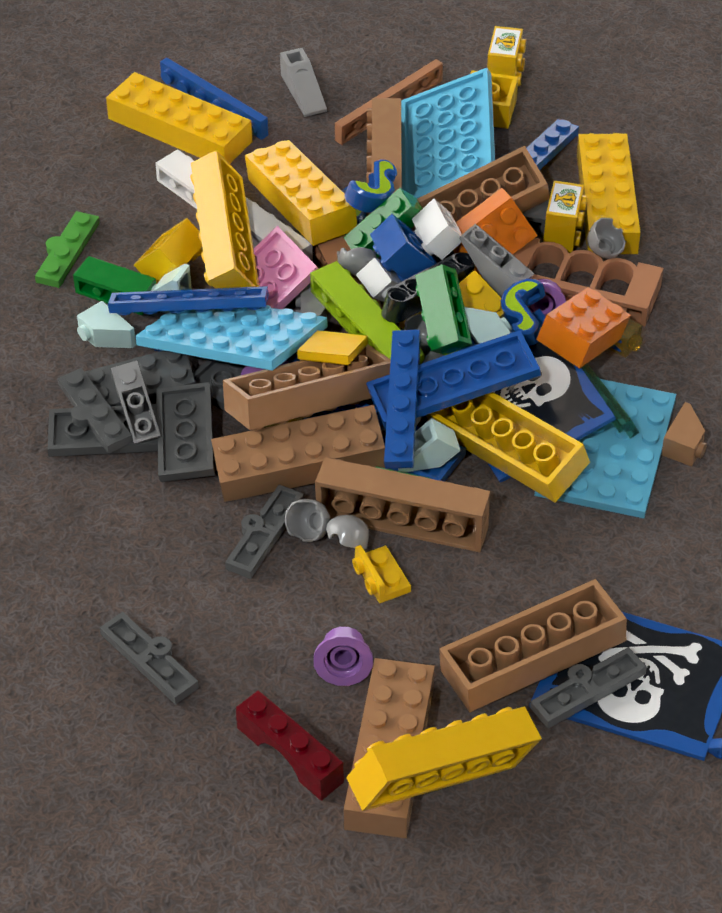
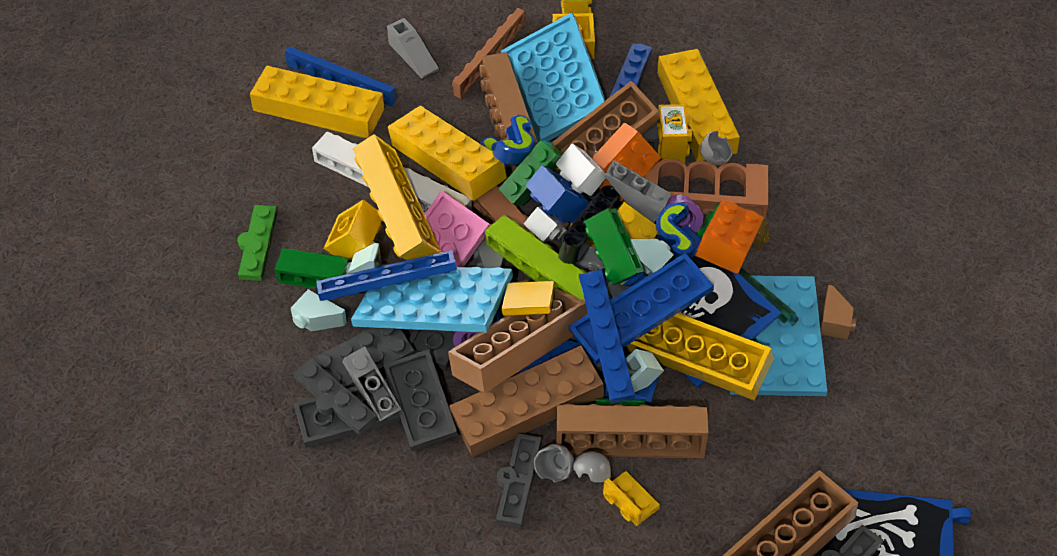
camera: 15 degrees left, 5 degrees up
(355, 259) = (519, 210): light grey hair -> none

